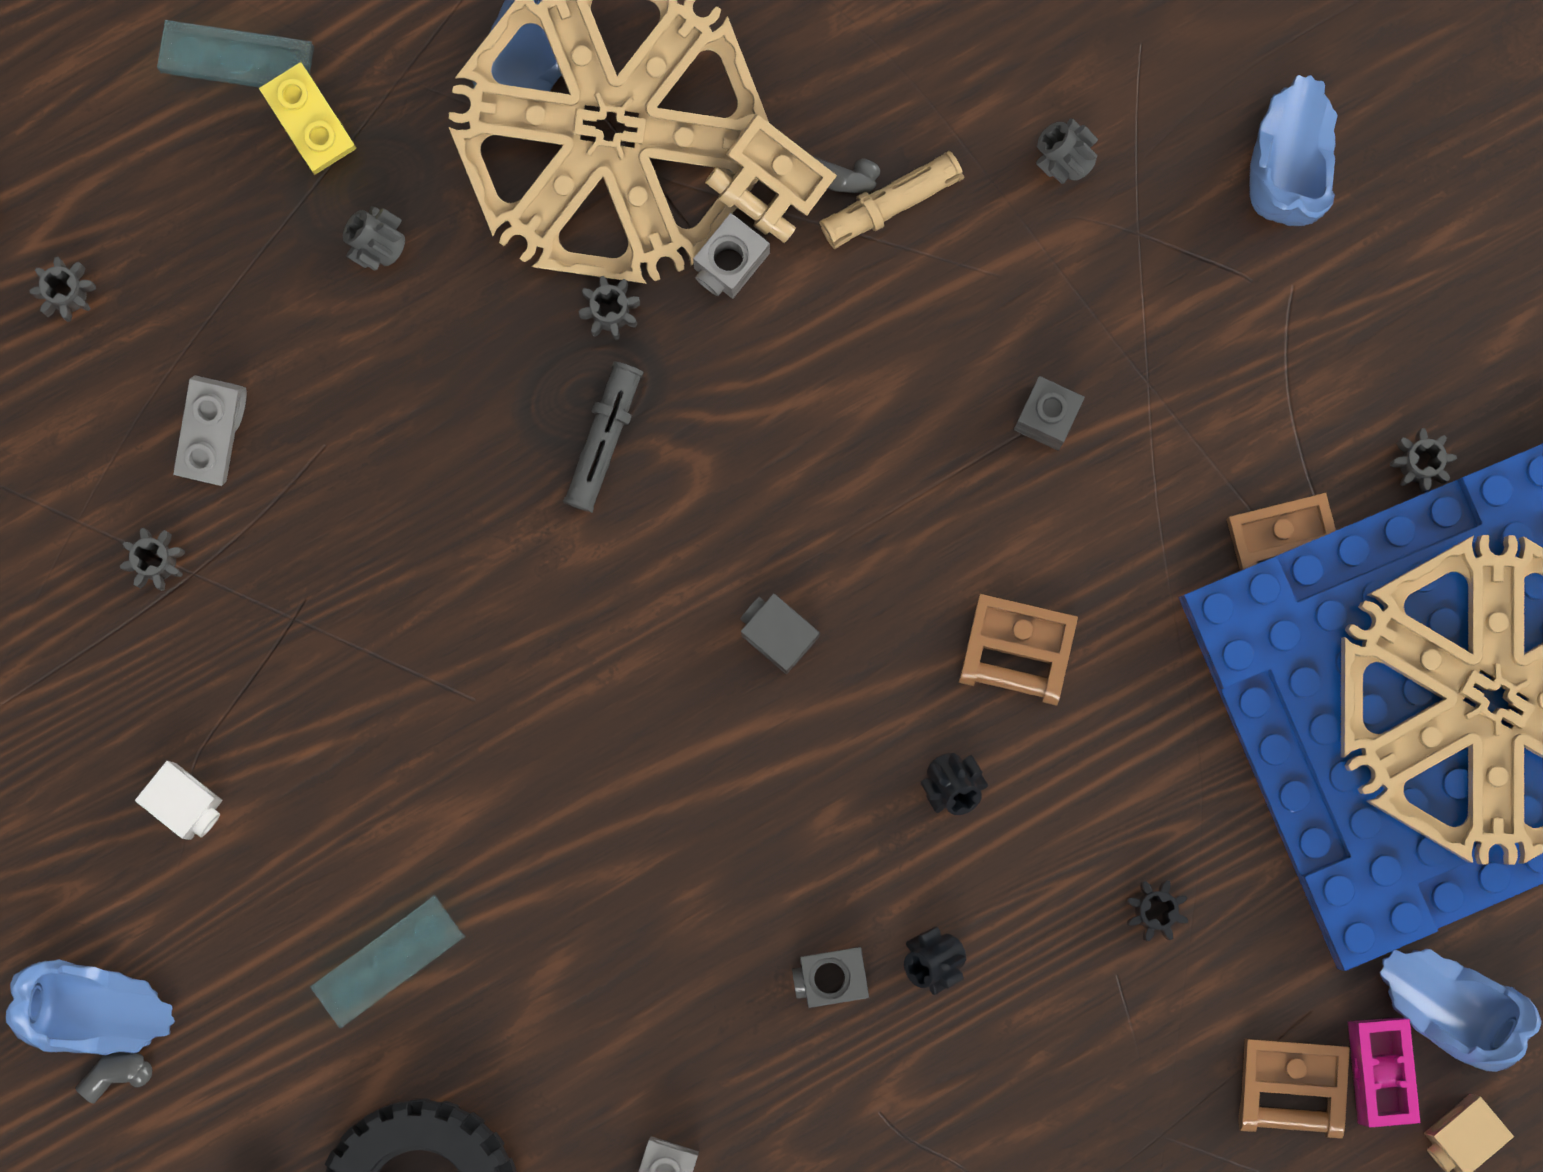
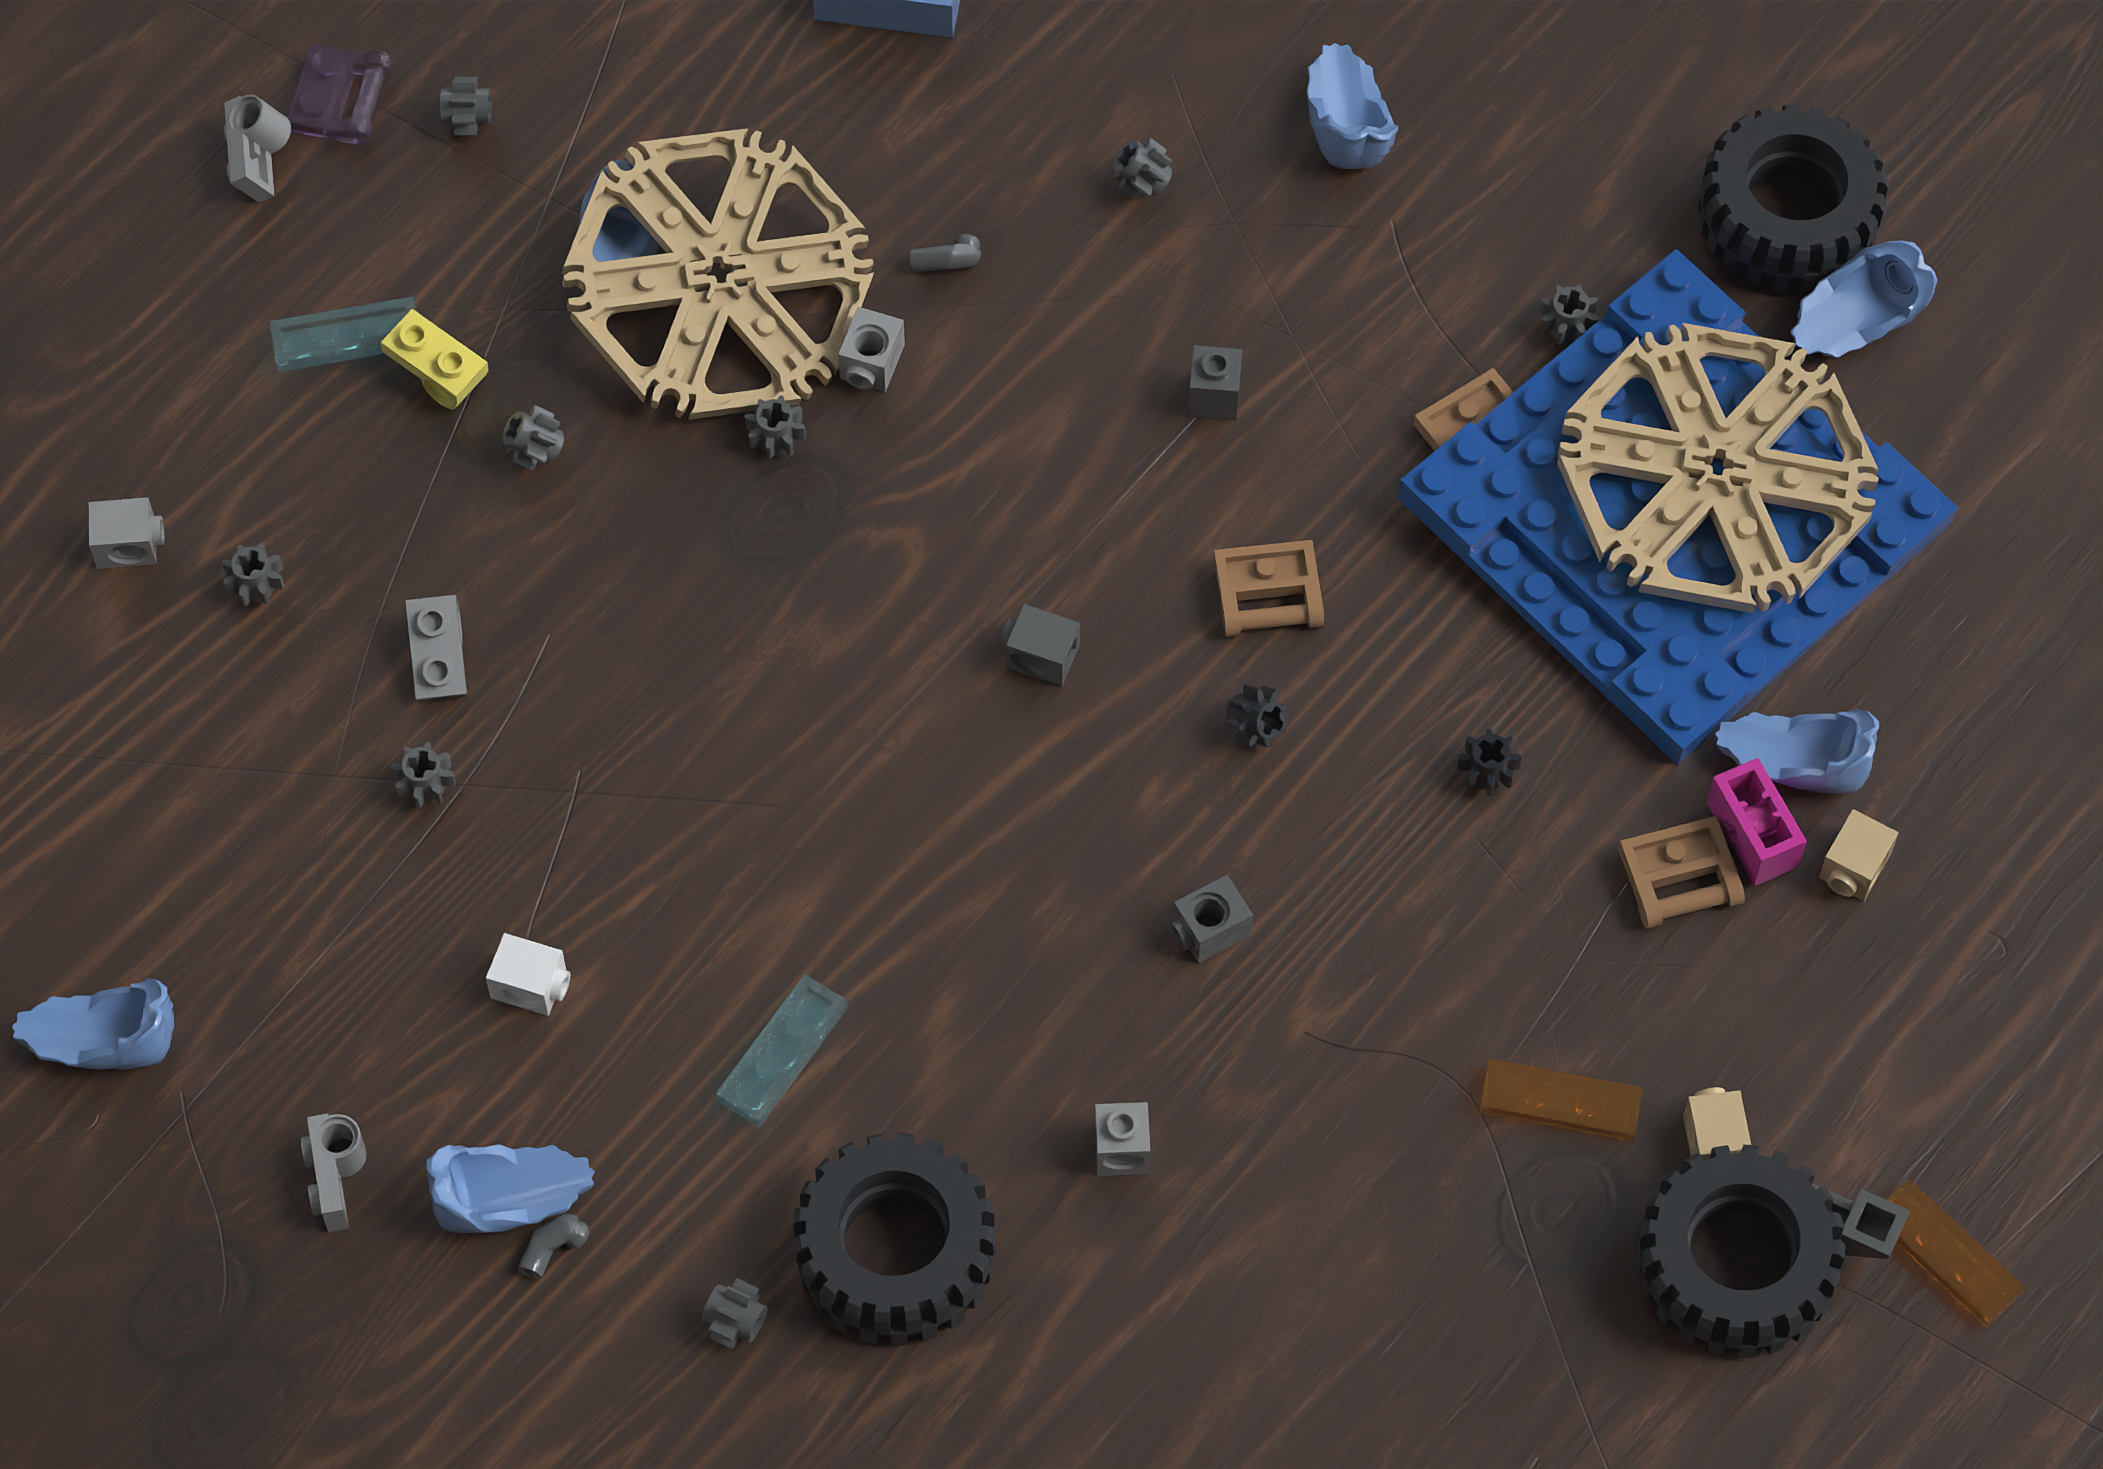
camera: 20 degrees left, 20 degrees down
(624, 381) = (811, 566): dark grey pin -> none
(779, 165) = (887, 254): tan plate -> none
(874, 209) = (986, 273): tan pin -> none
(935, 960) = (1301, 871): black gear -> none

